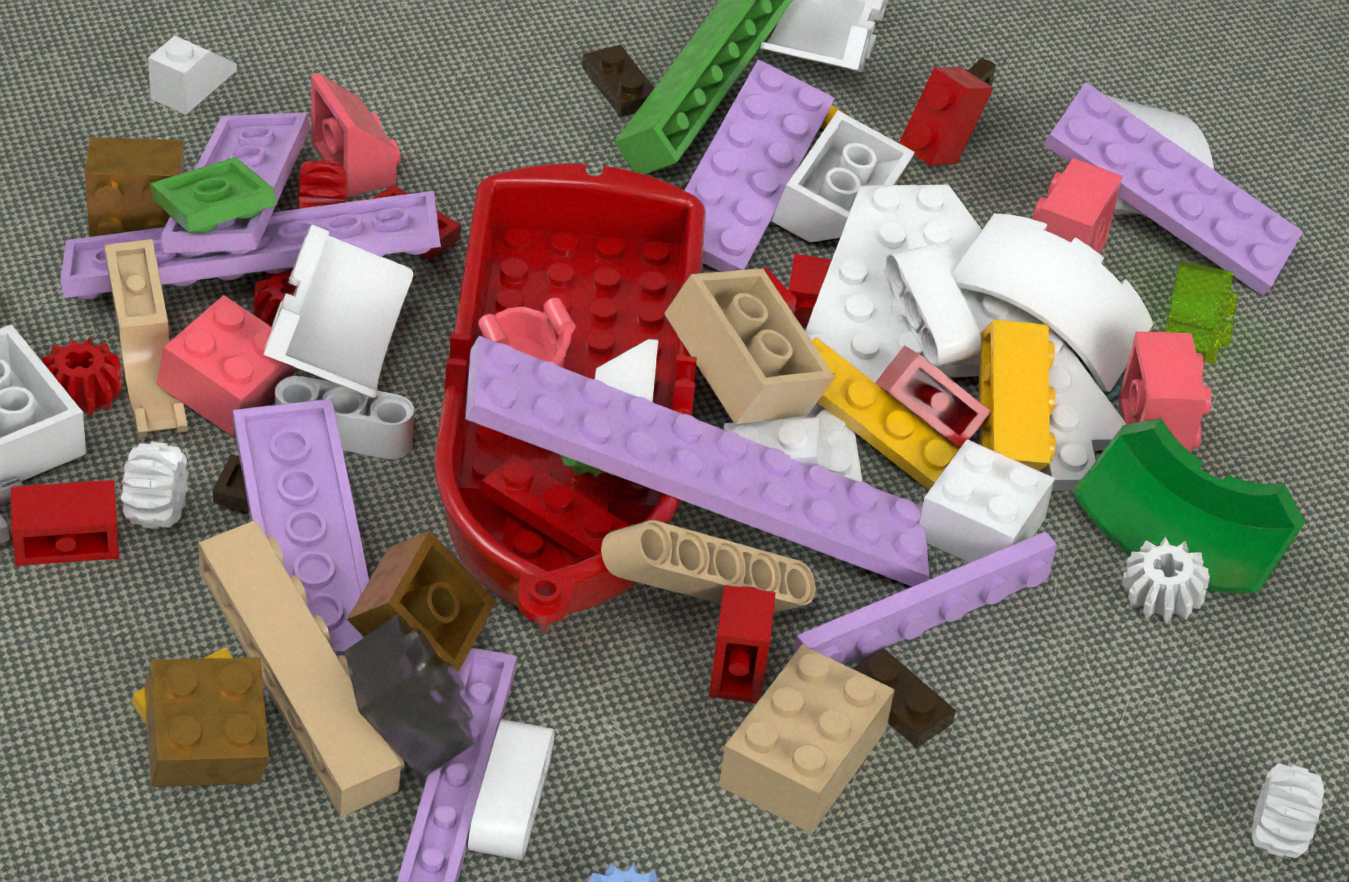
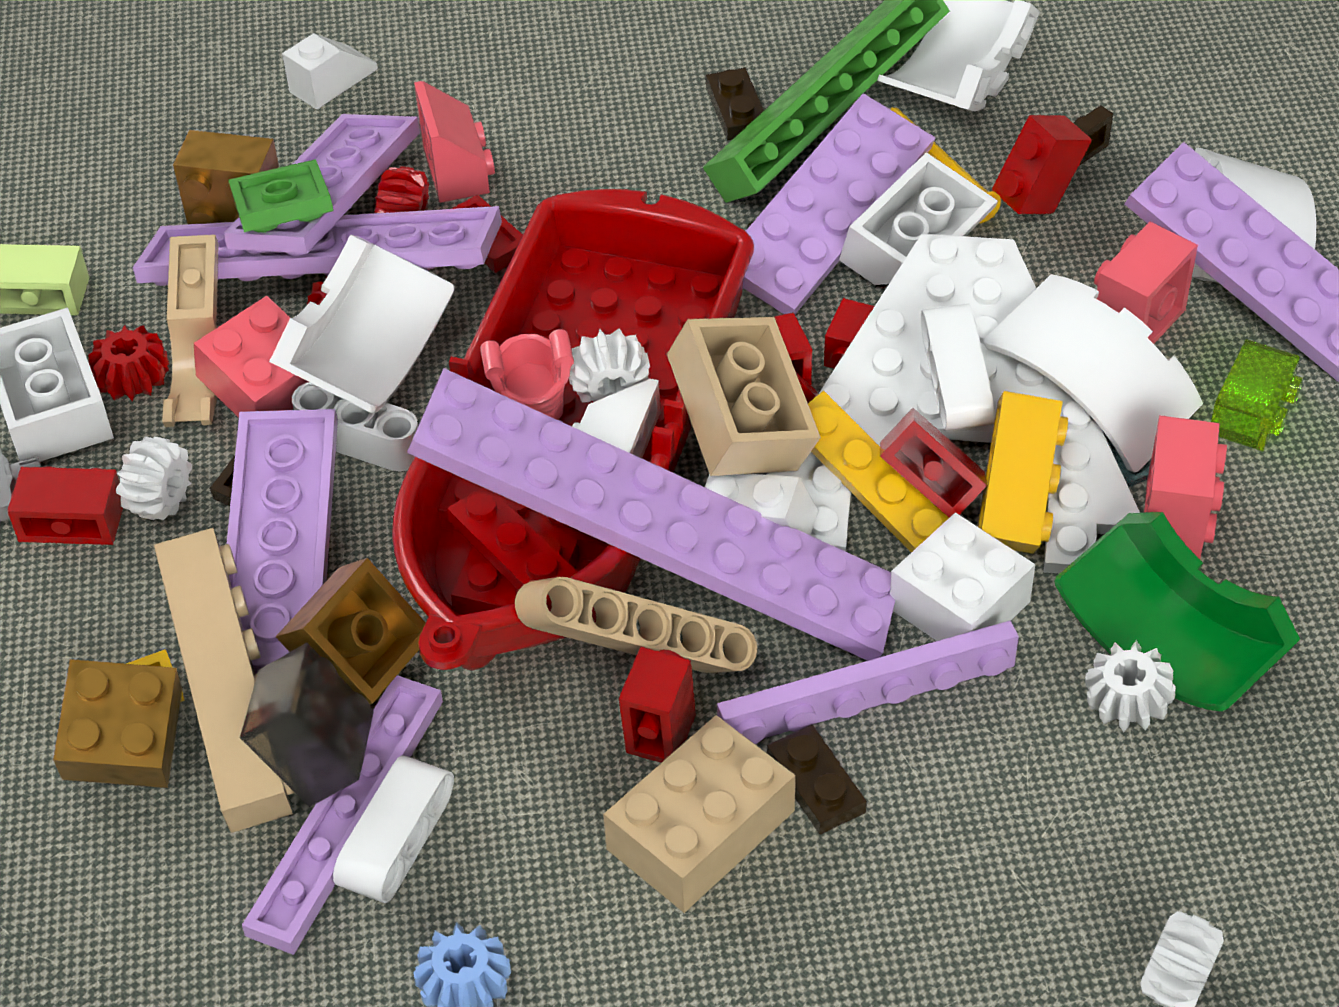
camera: 20 degrees right, 5 degrees up
(603, 331) = (607, 365): none -> white gear

